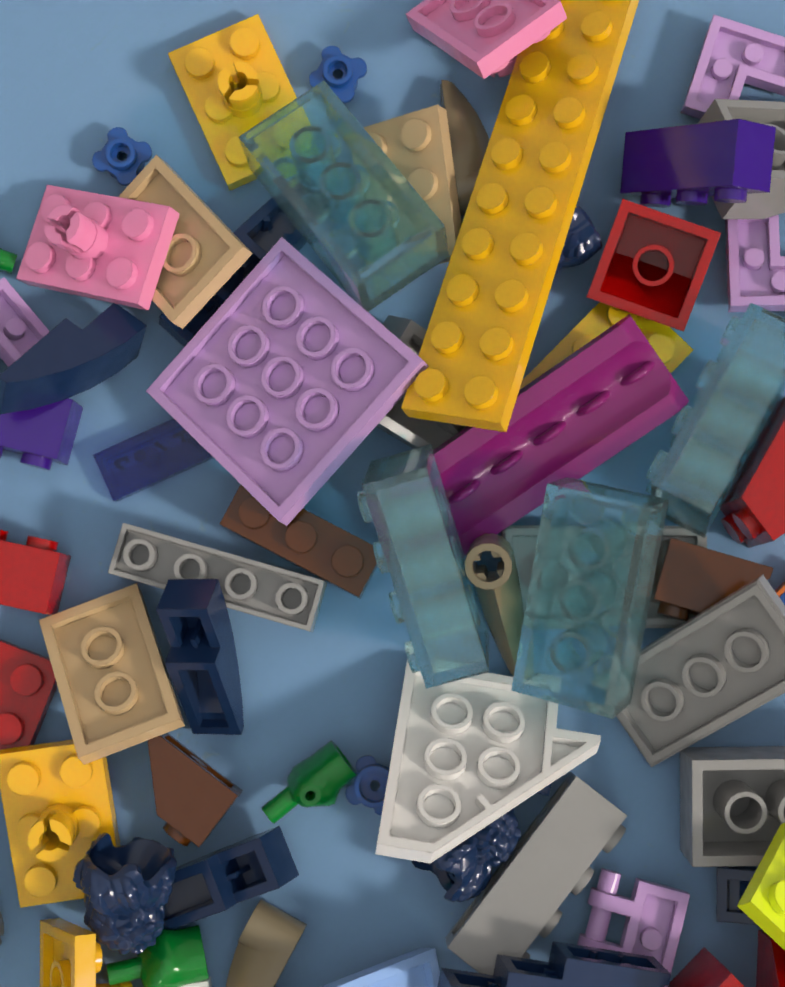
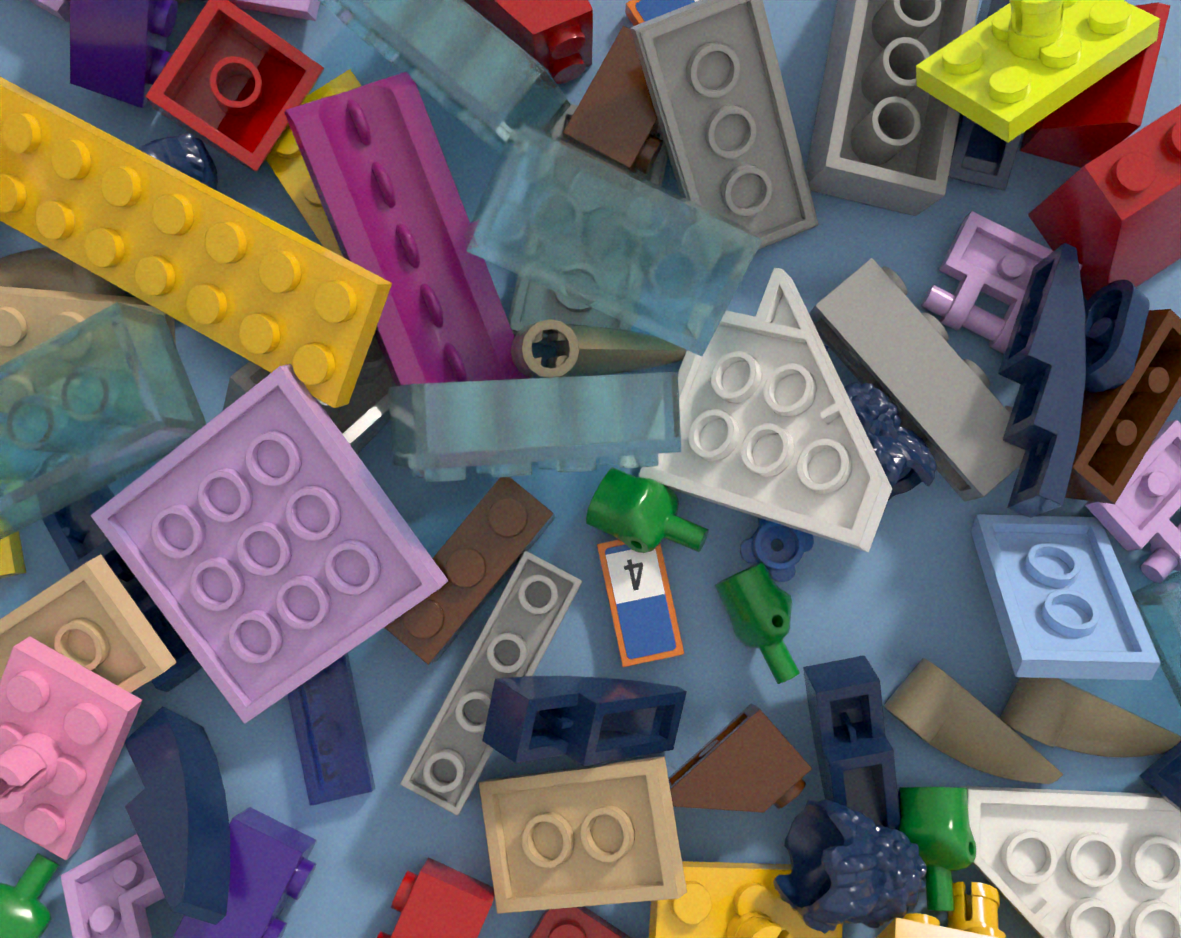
camera: 80 degrees left, 0 degrees up
(307, 681) = (640, 603): none -> tile
(376, 668) = (641, 513): none -> green piece

